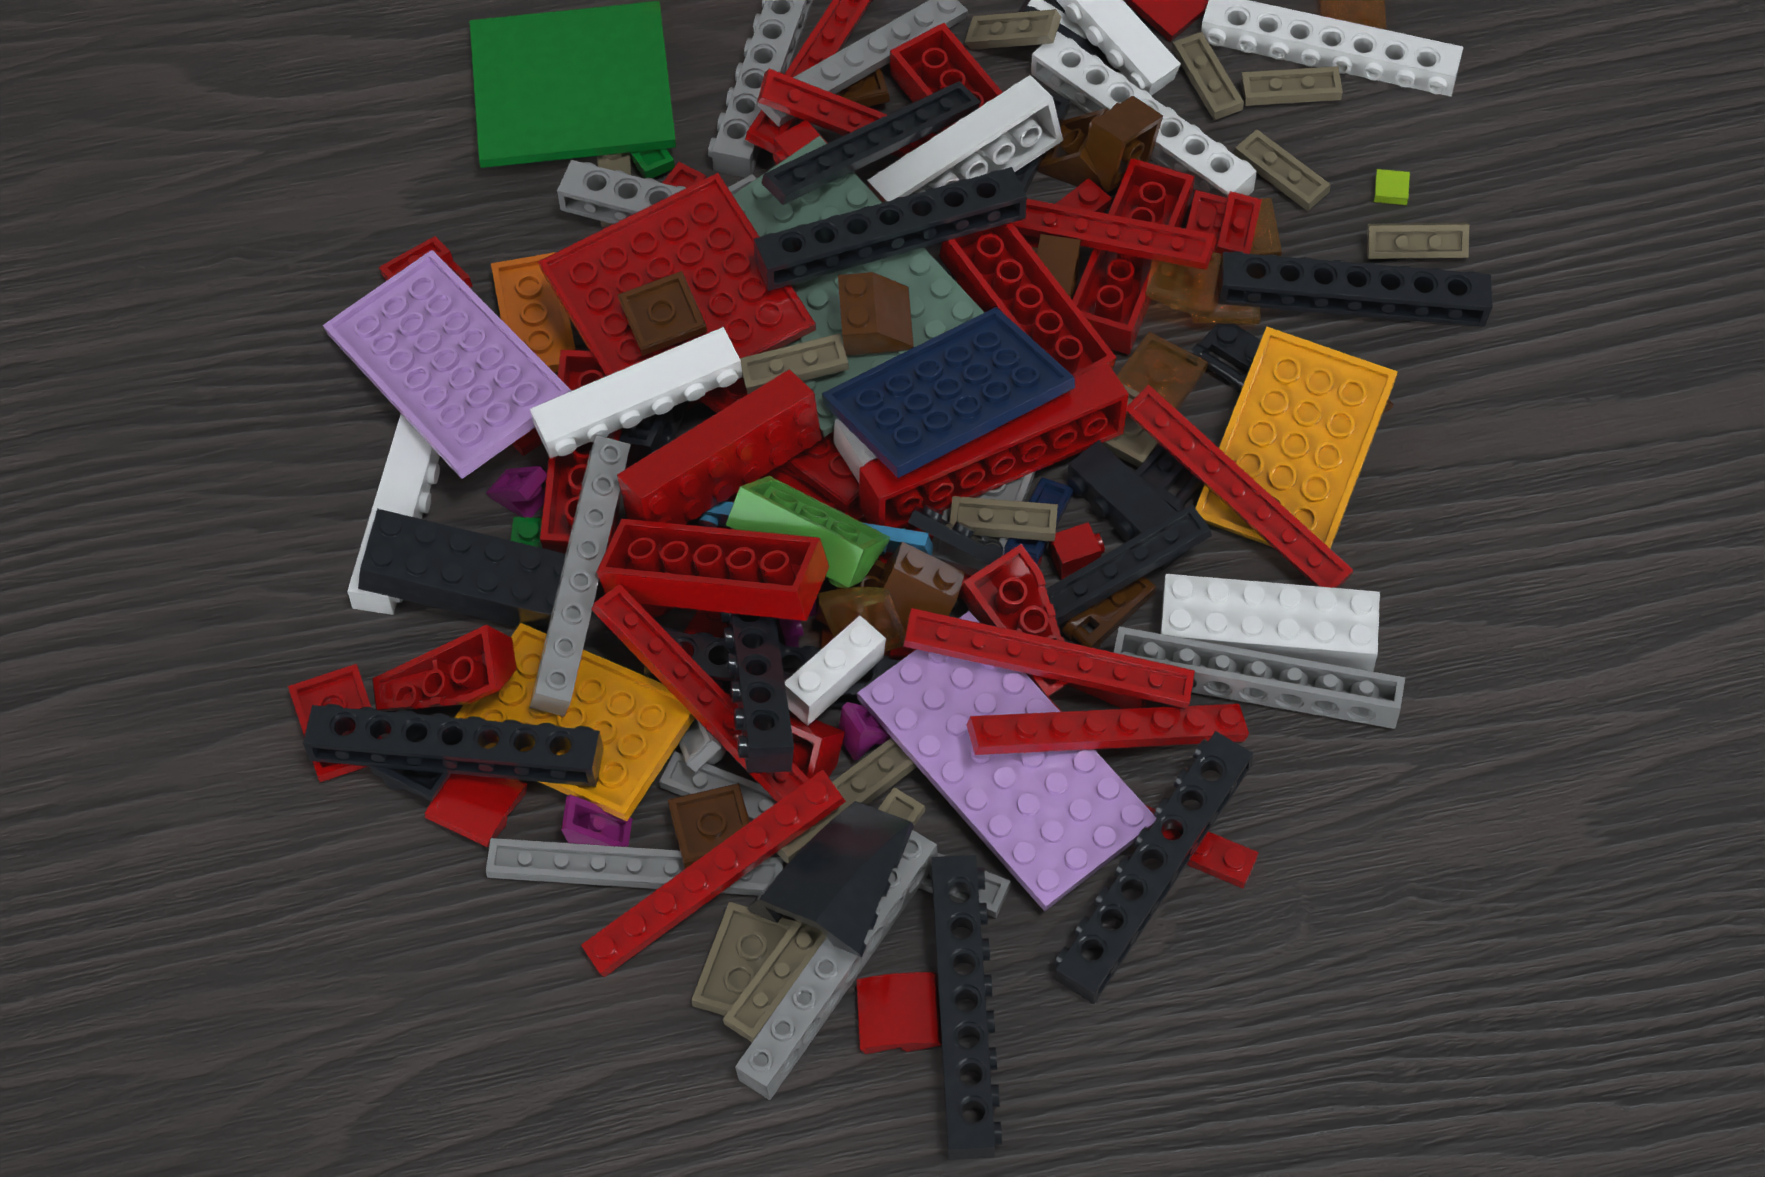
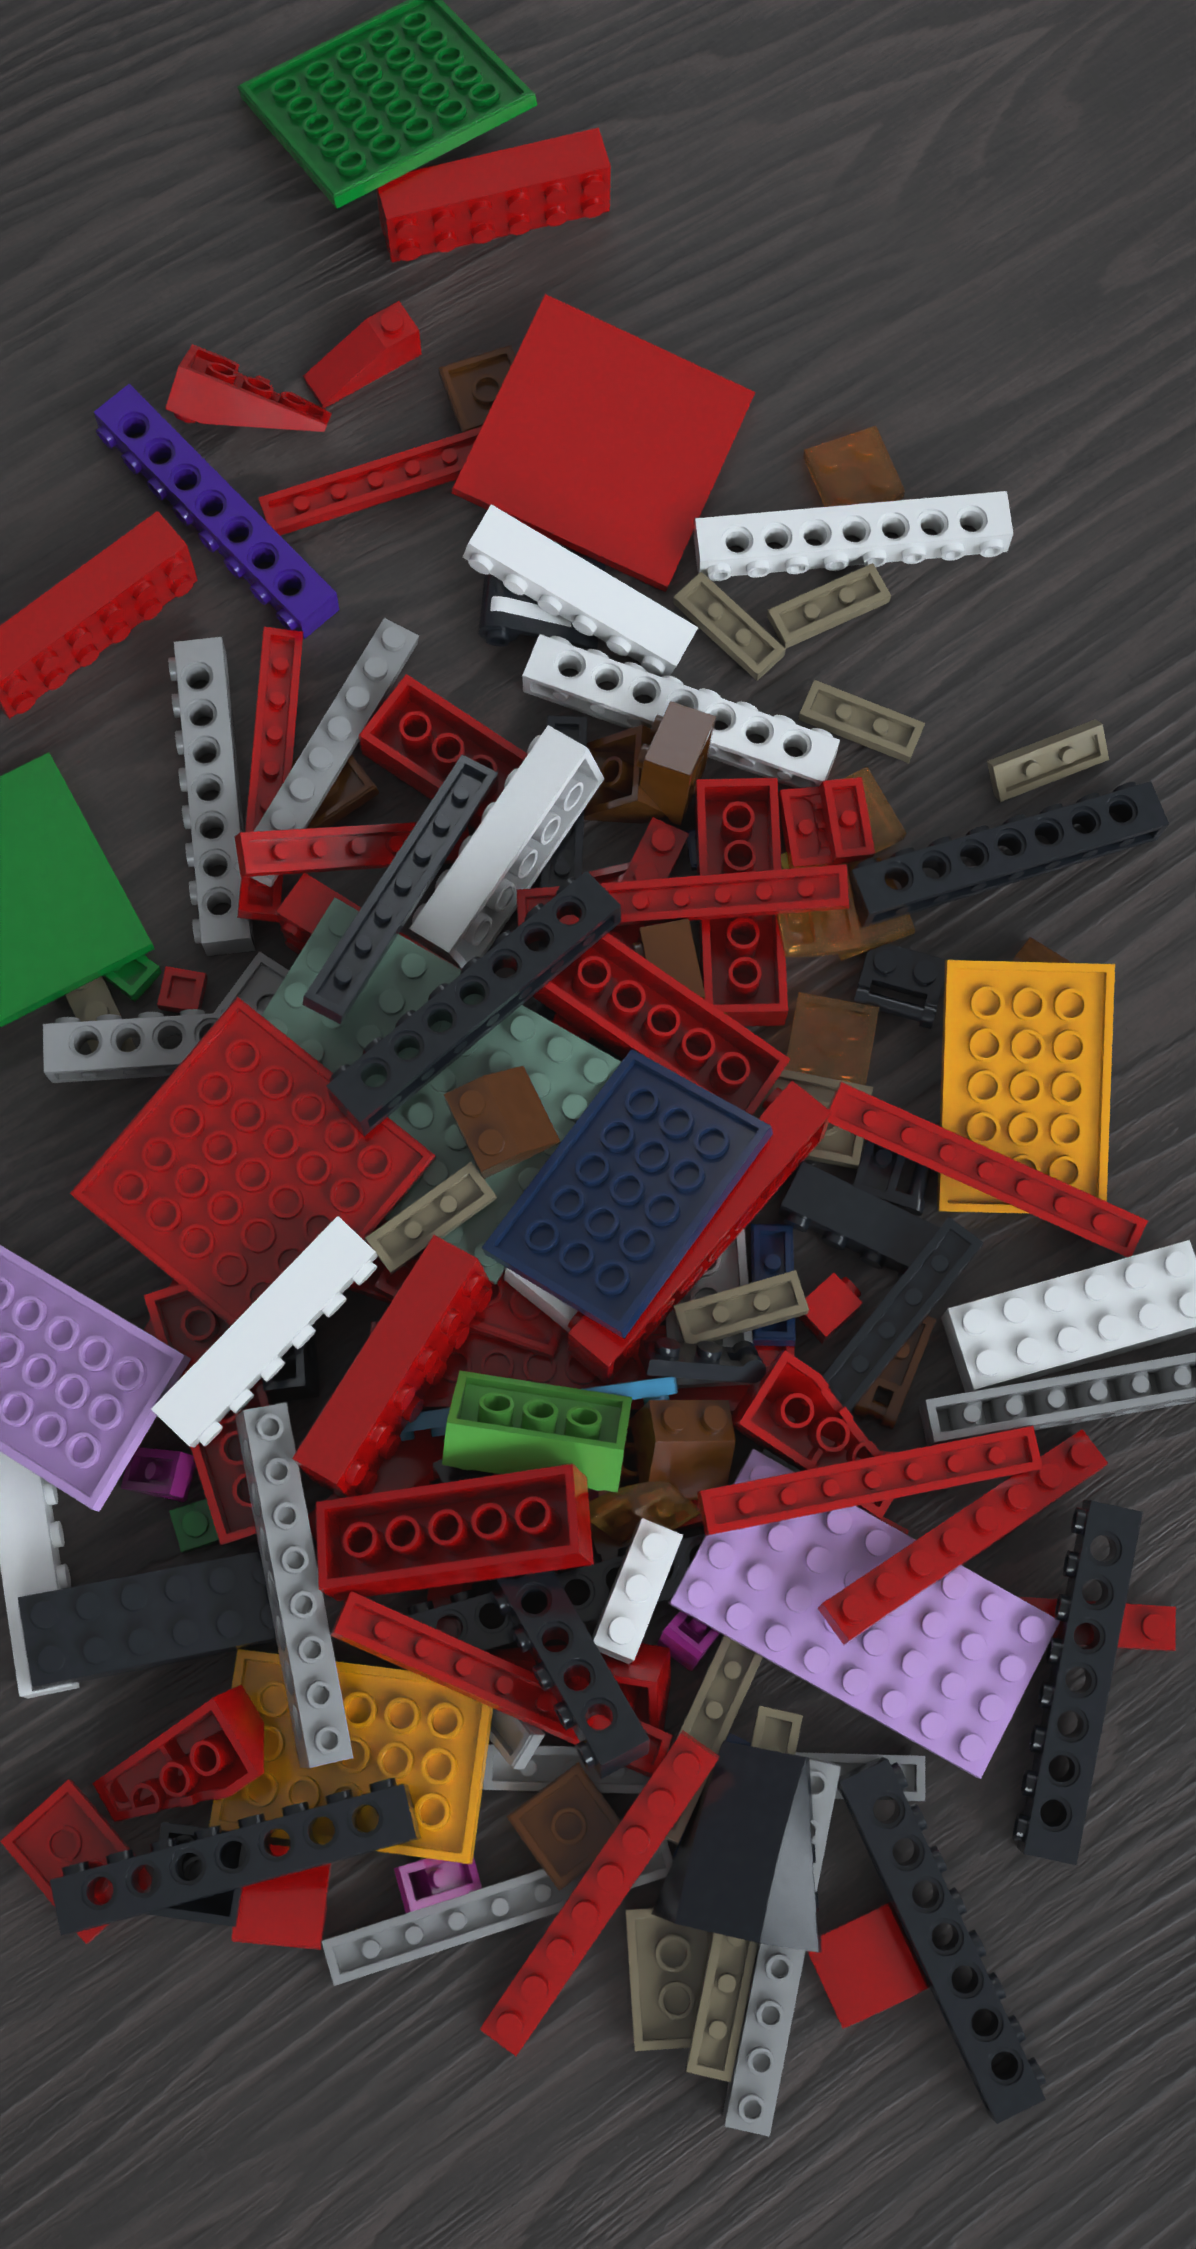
camera: 25 degrees left, 15 degrees up
(532, 308) = (72, 1238): orange plate -> none
(662, 313) = (251, 1214): reddish brown plate -> none
(1013, 29) = (487, 649): dark tan plate -> none
(1391, 187) = (989, 697): lime tile -> none

